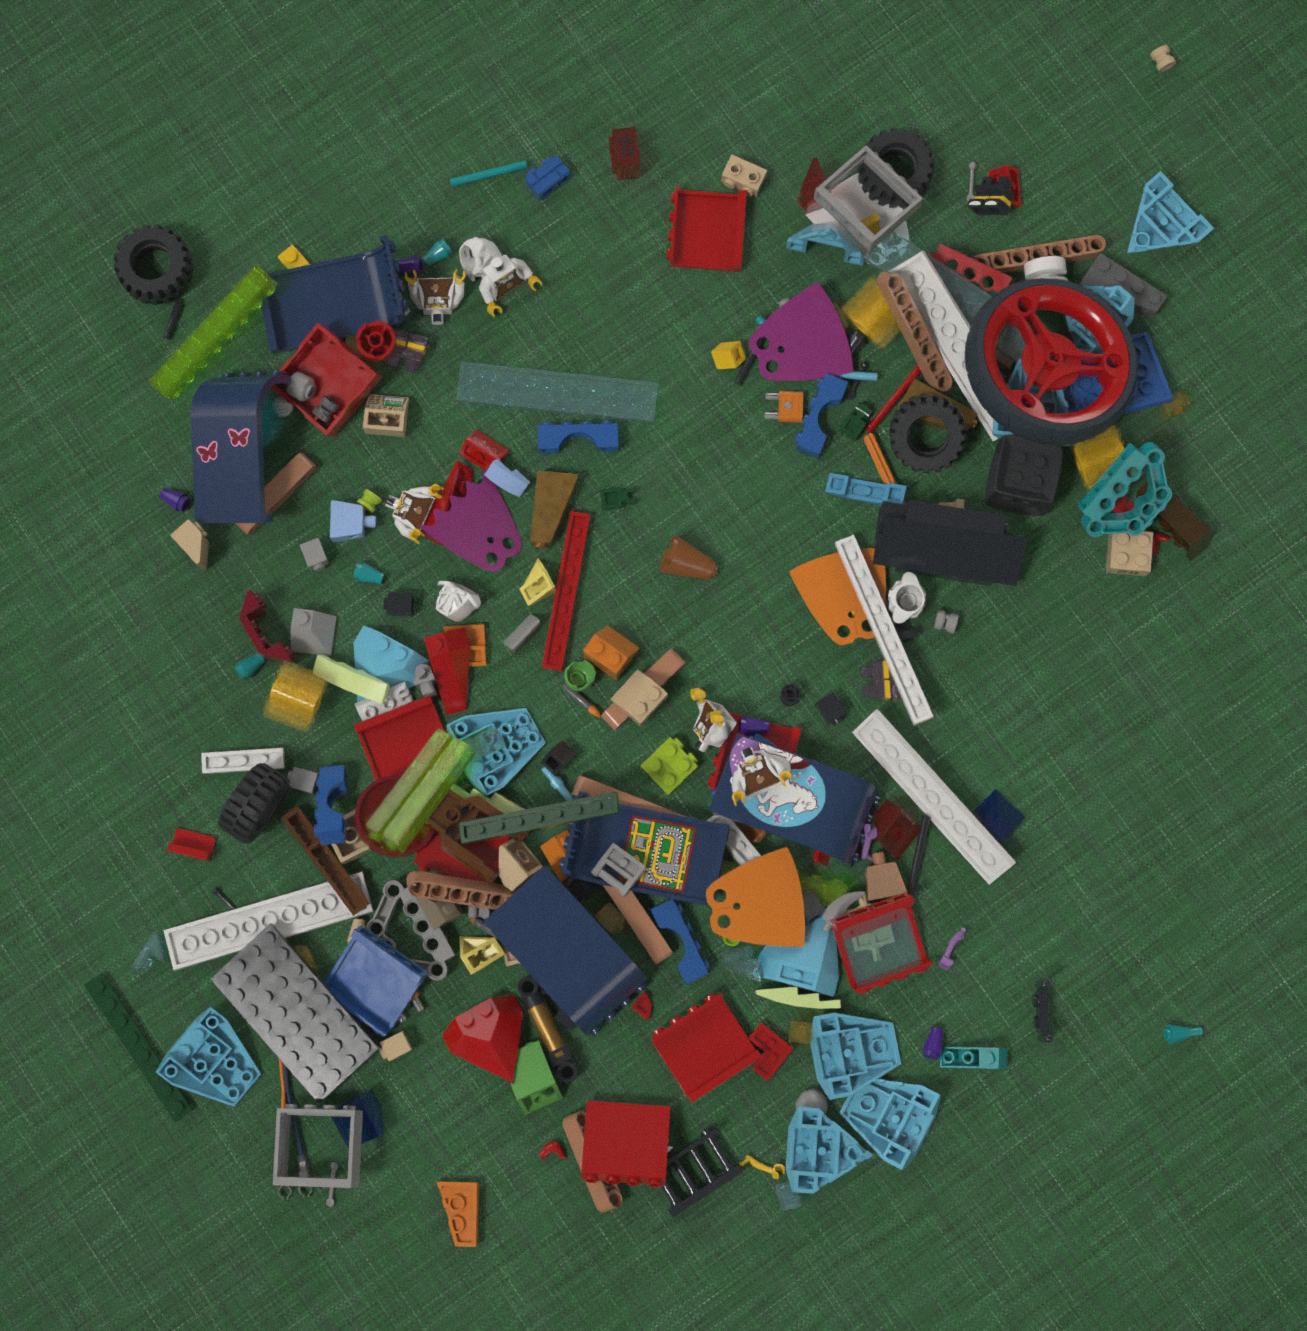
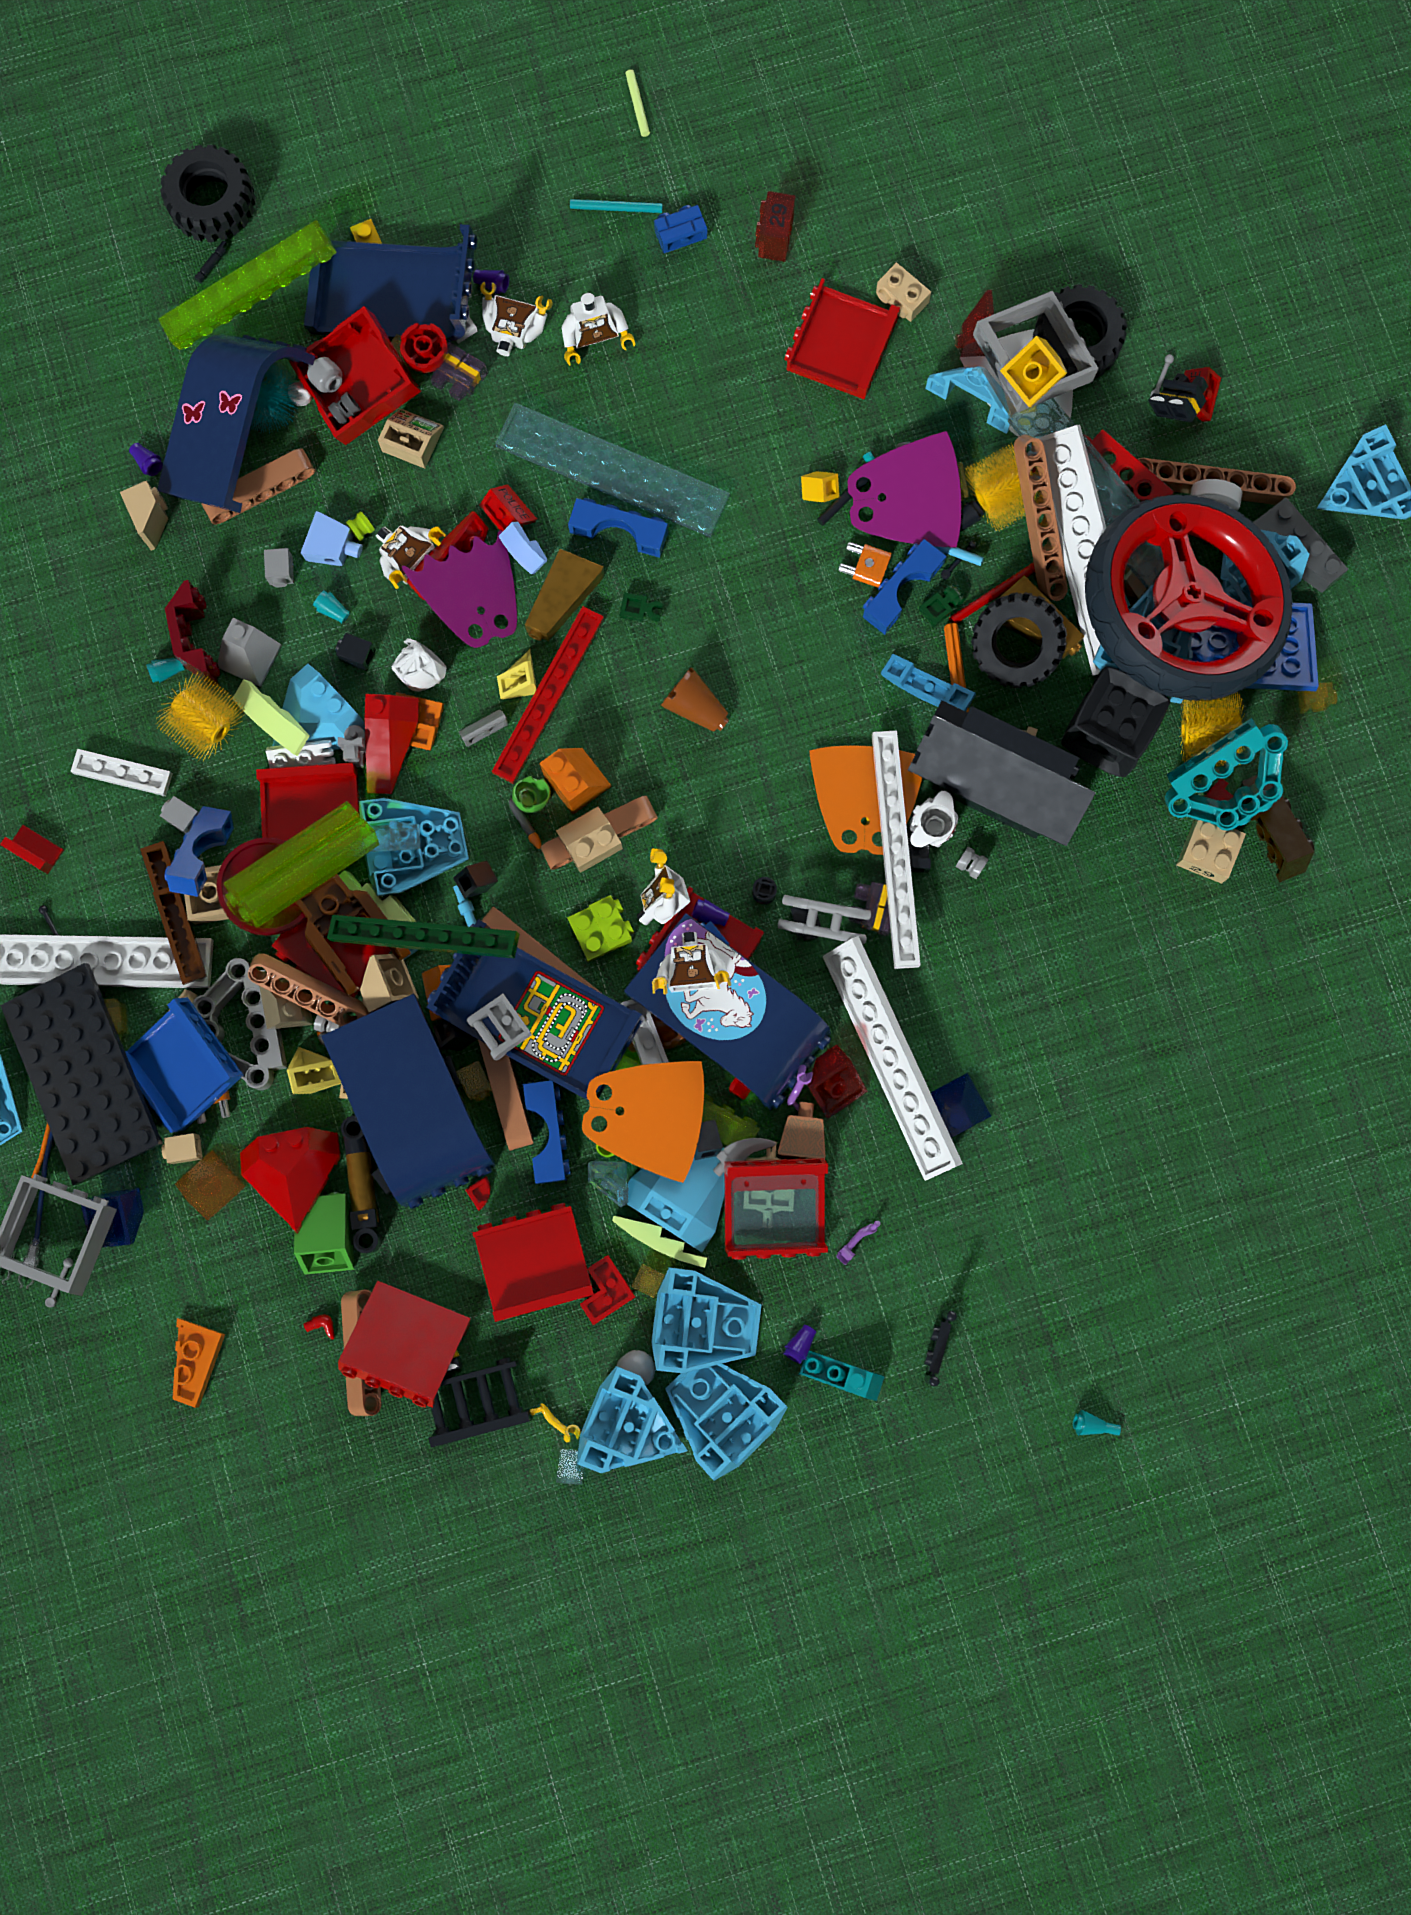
camera: 20 degrees right, 0 degrees up
(254, 803) = (111, 820): black tyre -> none
(426, 1068) = (209, 1185): none -> clear orange slope
(437, 253) = (529, 275): teal cone -> none
(477, 82) = (637, 102): none -> yellowish green bar
(482, 254) = (577, 285): white piece -> none
(836, 713) = (813, 907): none -> light grey piece
(875, 218) = (1034, 370): none -> yellow slope
(918, 855) = (853, 1121): black bar -> none
(1158, 537) = (1248, 842): red animal -> none

